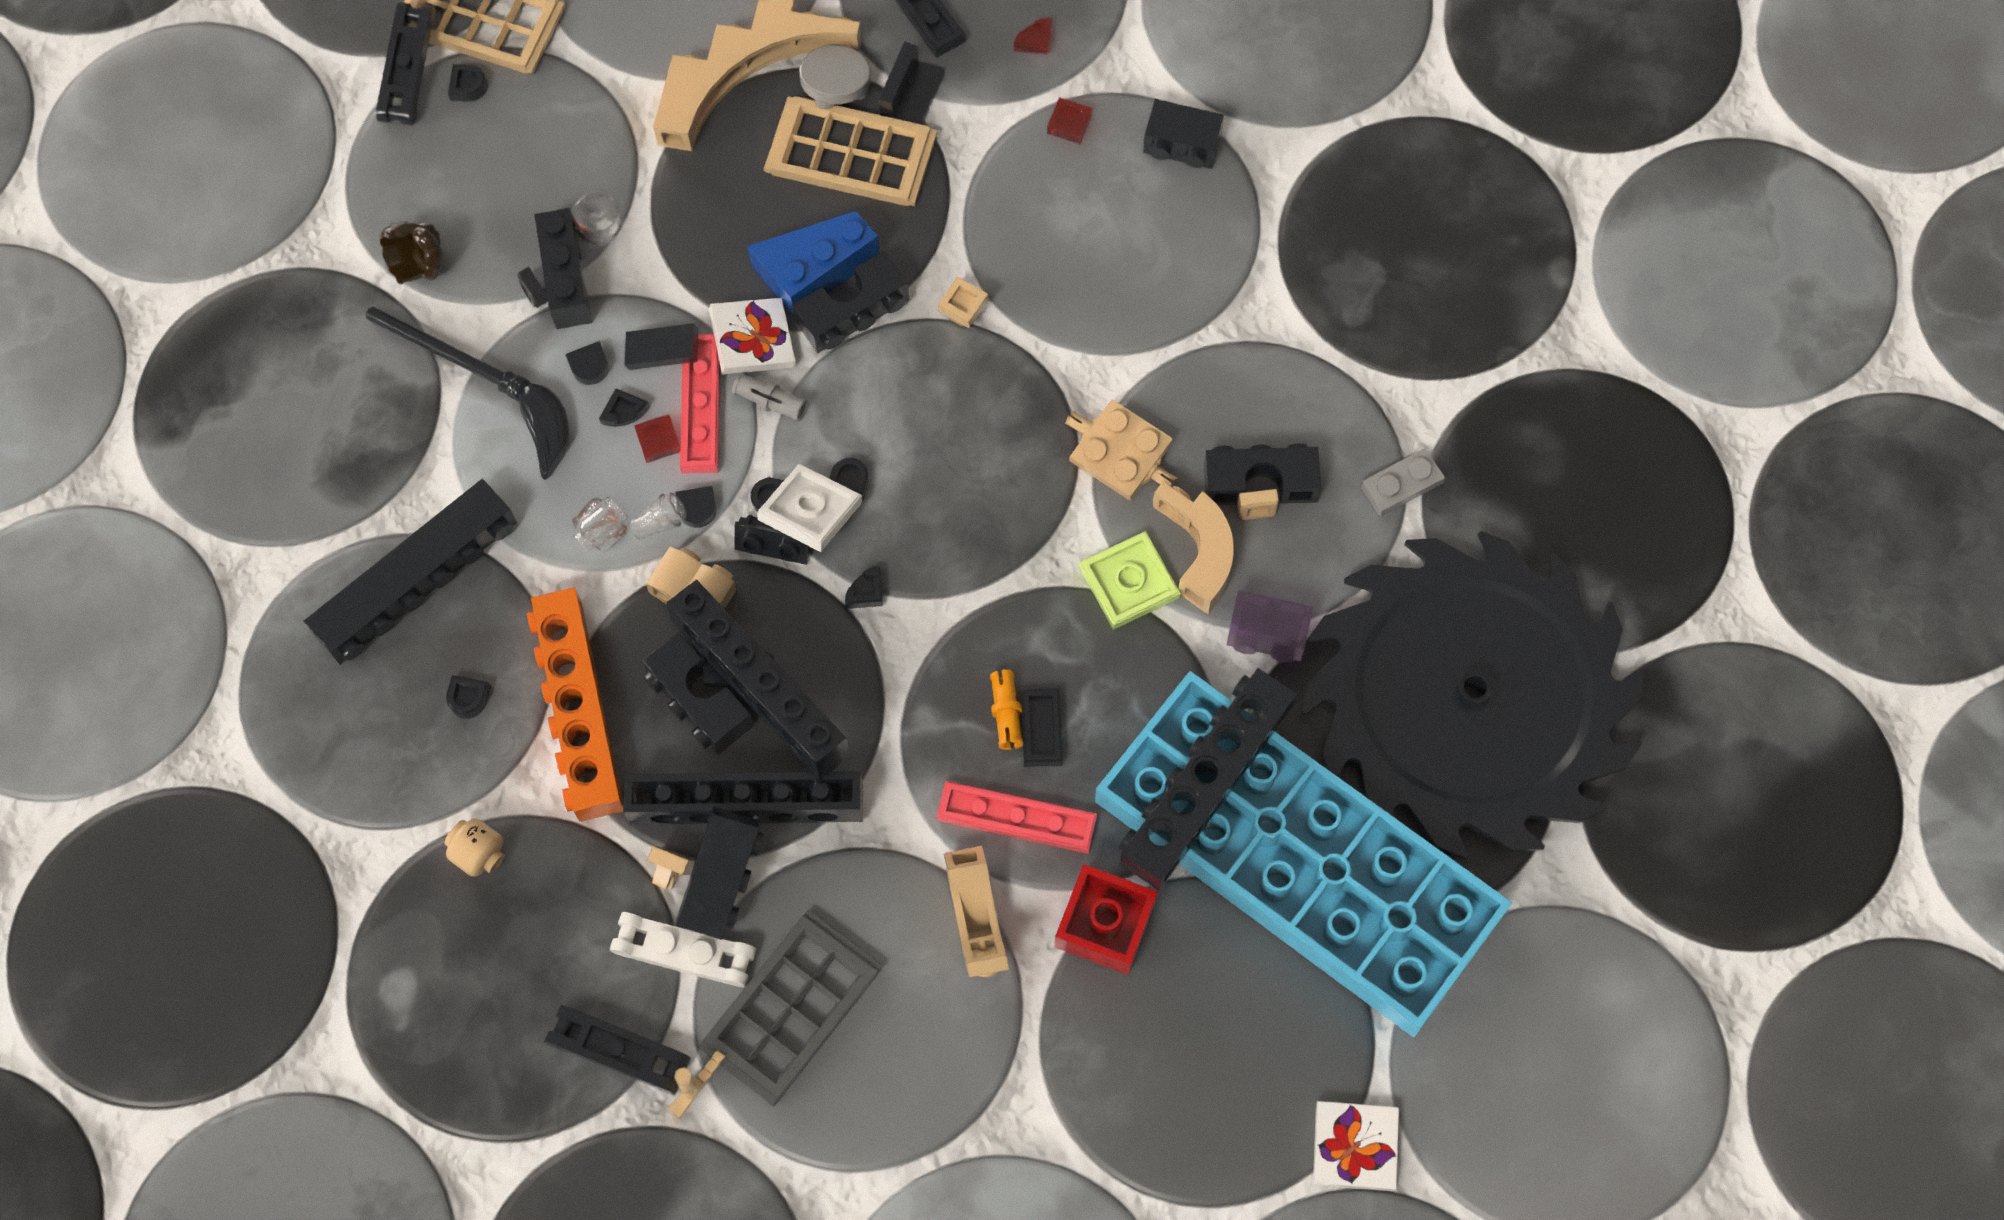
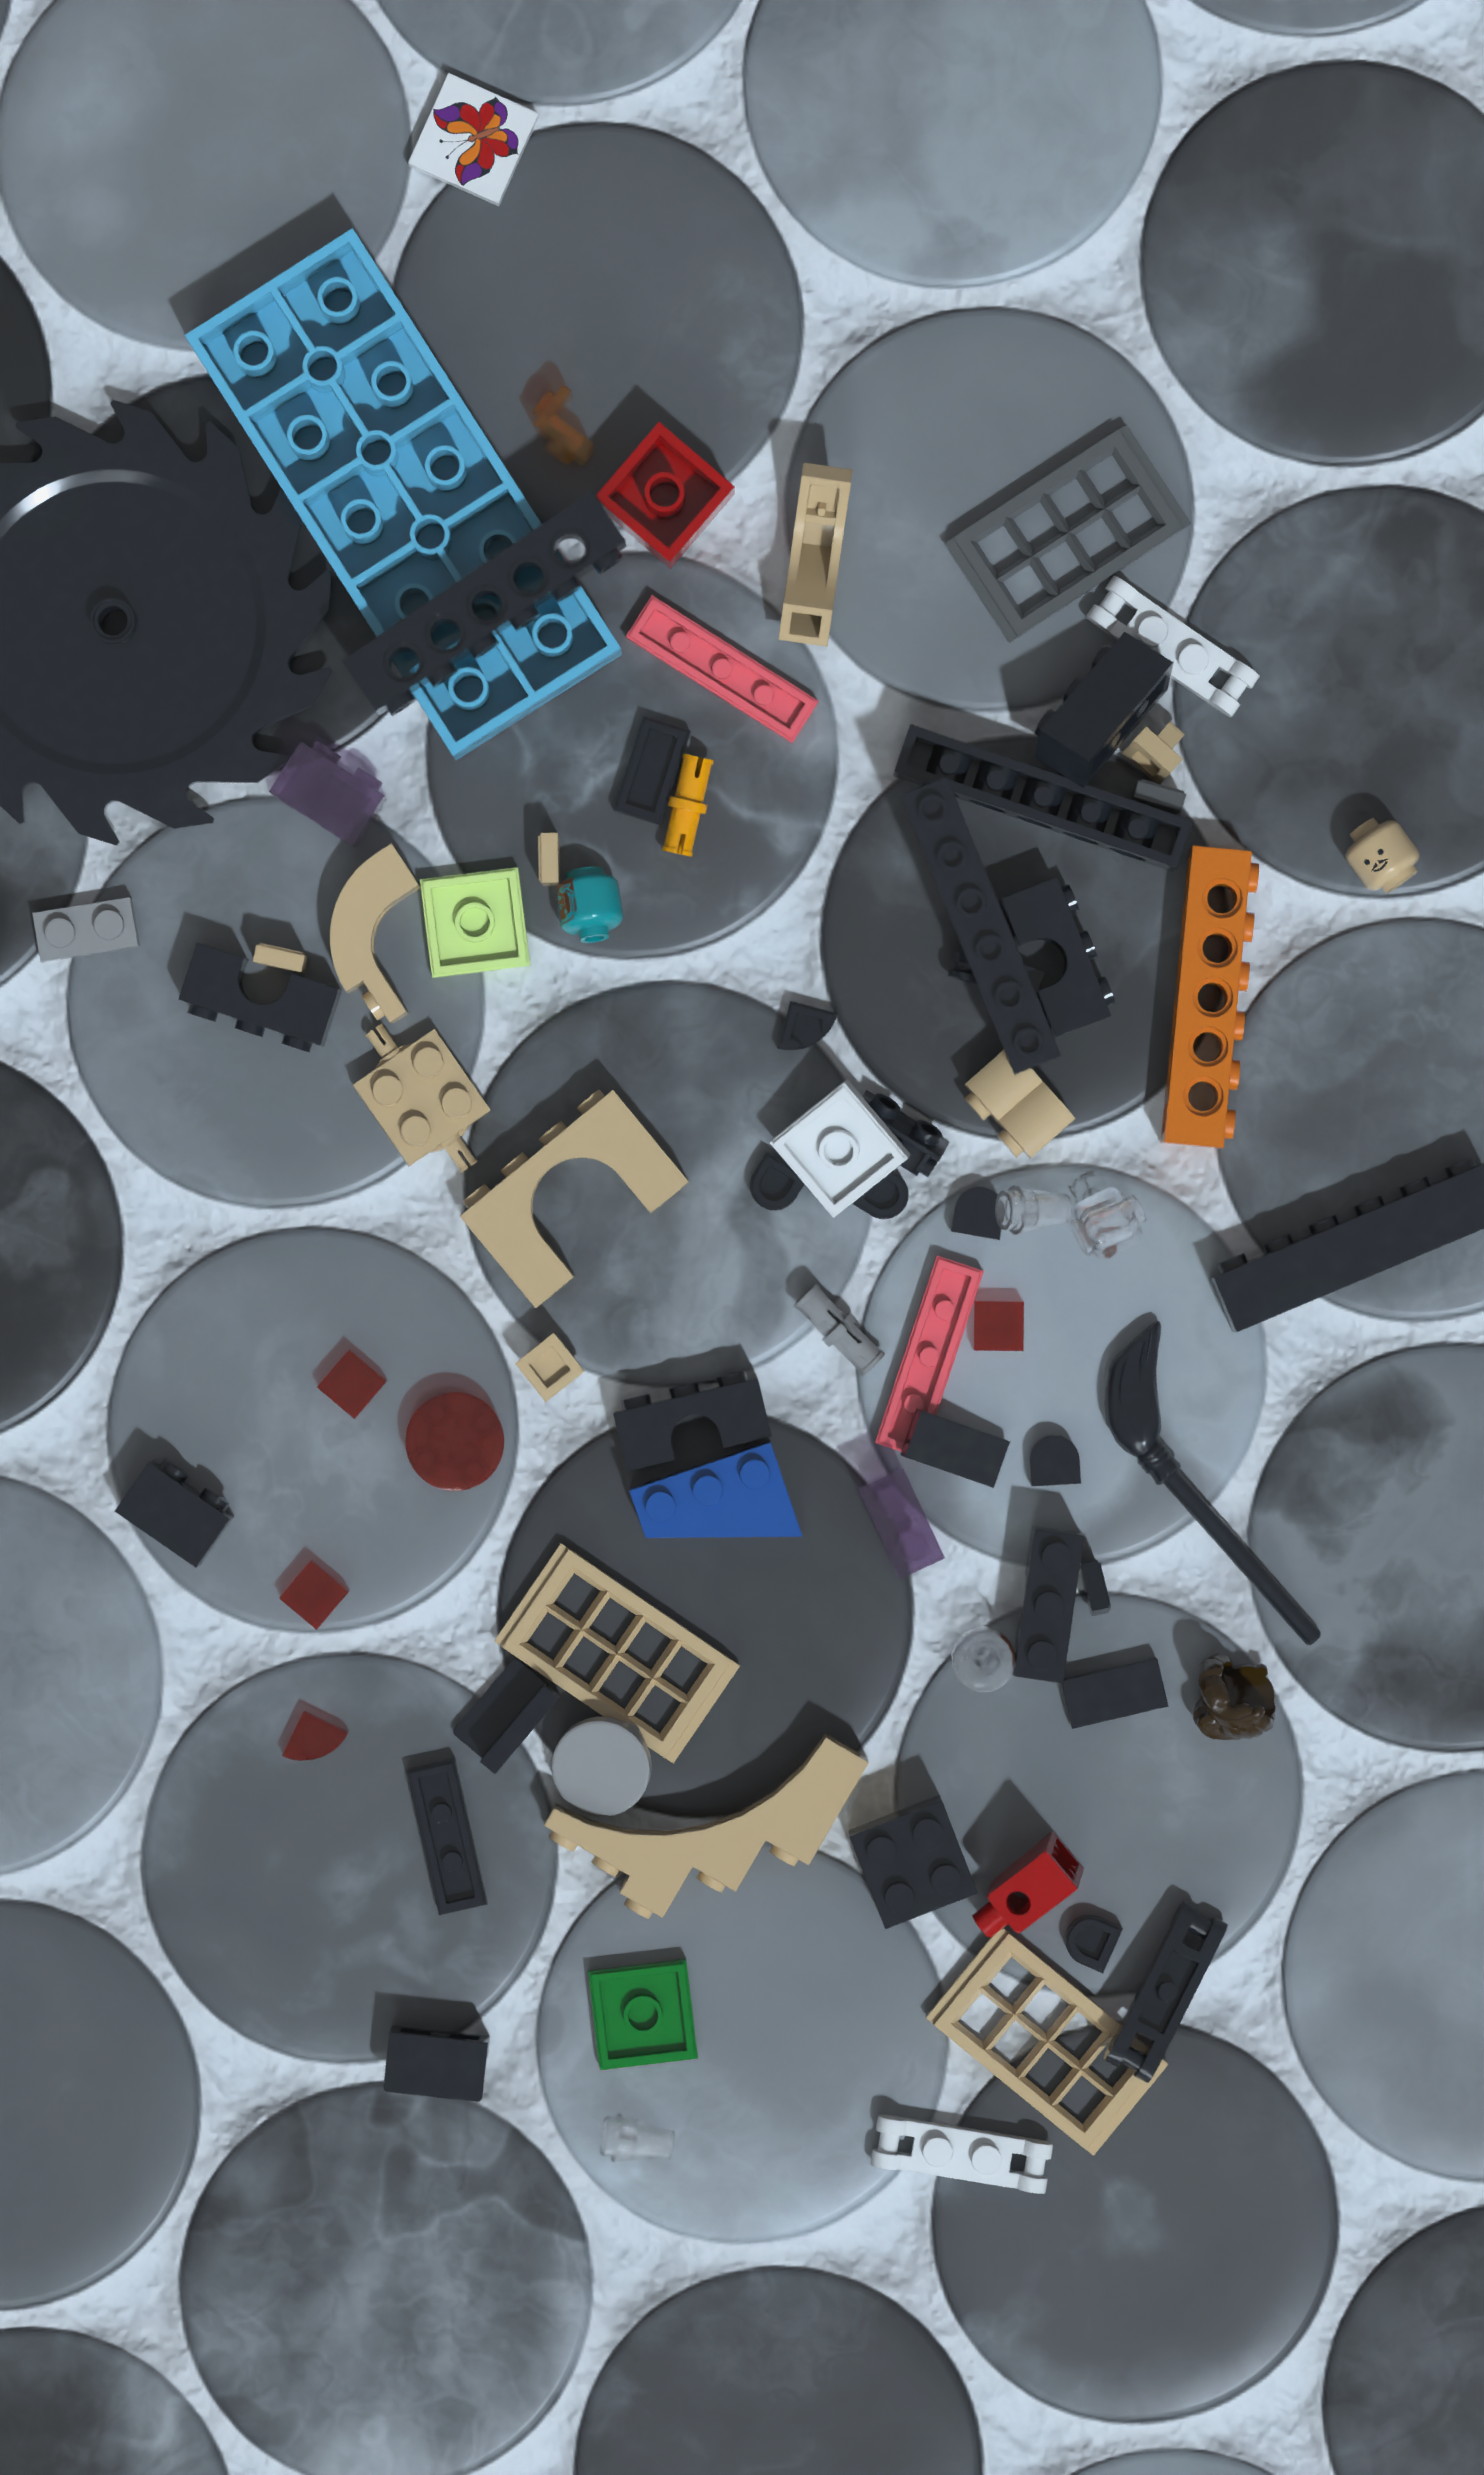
camera: 170 degrees left, 20 degrees up
(467, 696) = (1337, 1061): black tile -> none
(499, 234) = (1114, 1693): none -> black tile
(515, 94) = (1043, 1873): none -> red torso
(603, 84) = (912, 1862): none -> black brick
(617, 1049) = (1286, 552): black plate -> none
(623, 409) = (1029, 1383): black tile -> none
(658, 833) = (1159, 796): none -> dark grey tile
(682, 284) = (900, 1522): none -> clear purple brick
(690, 1087) = (1219, 469): tan piece -> none
(752, 335) = (834, 1422): white tile -> none
(983, 465) = (505, 1216): none -> tan arch
(1011, 240) = (455, 1441): none -> clear red tile
(1051, 615) = (589, 904): none -> teal head
(1092, 636) = (549, 859): none -> tan tile
(1096, 255) = (352, 1384): none -> clear red tile
(1200, 940) = (563, 440): none -> clear orange bracket

